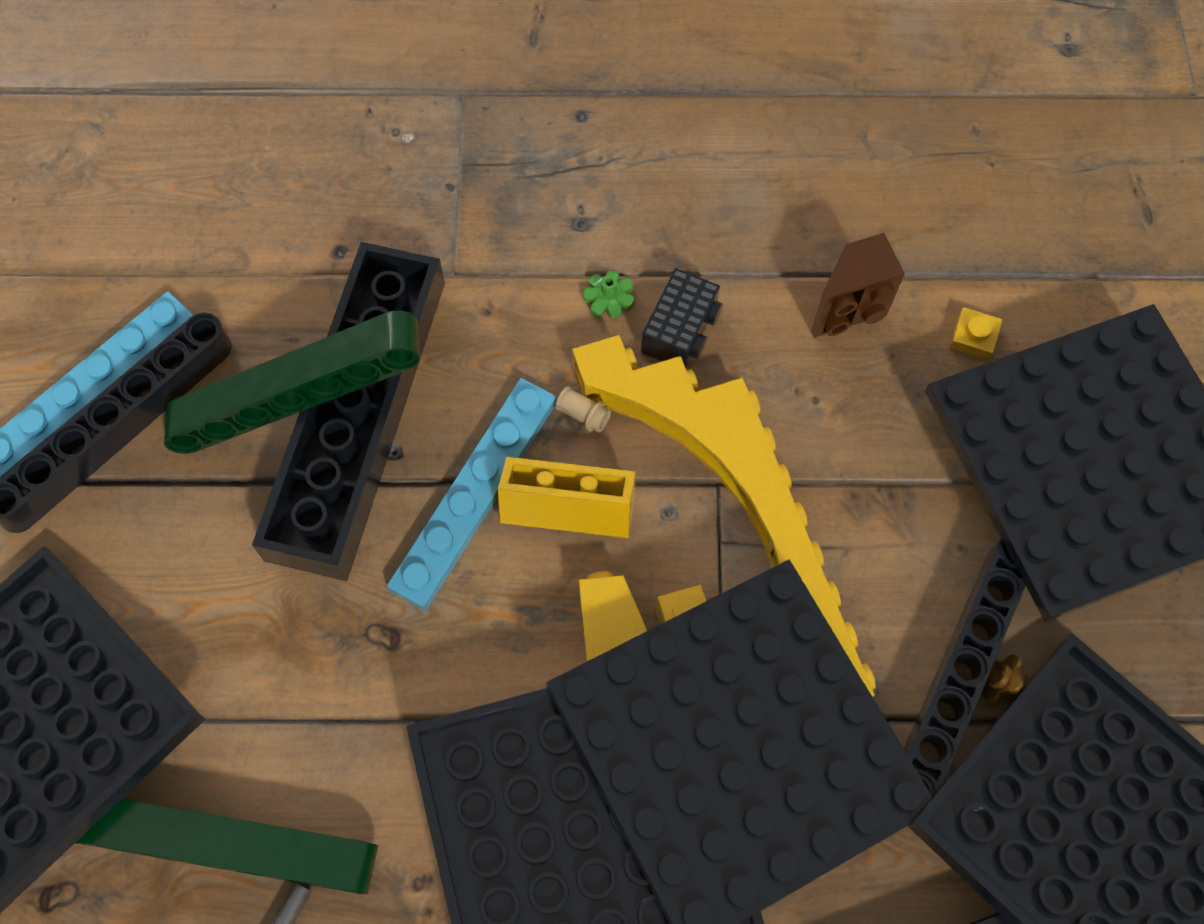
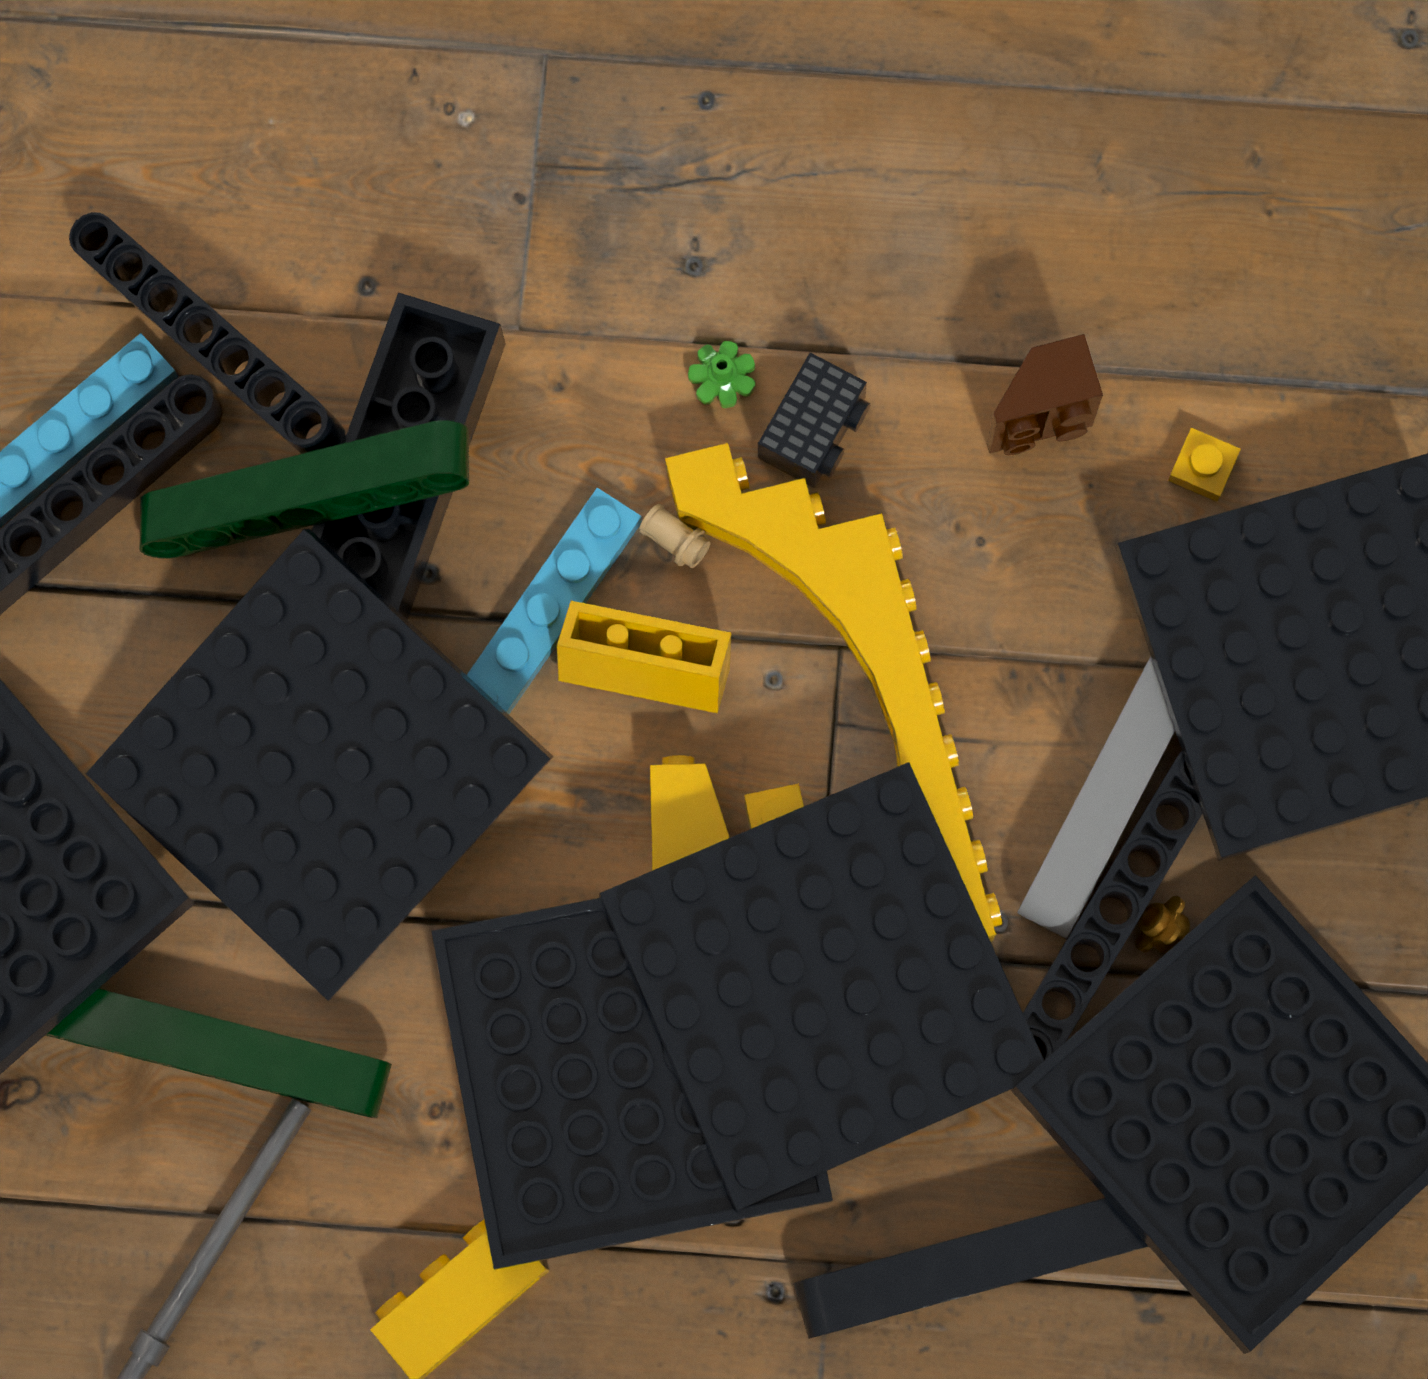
camera: 10 degrees right, 10 degrees up
(213, 281) = (193, 318): none -> black beam
(307, 599) = (319, 764): none -> black plate
(941, 590) = (1101, 809): none -> light grey beam

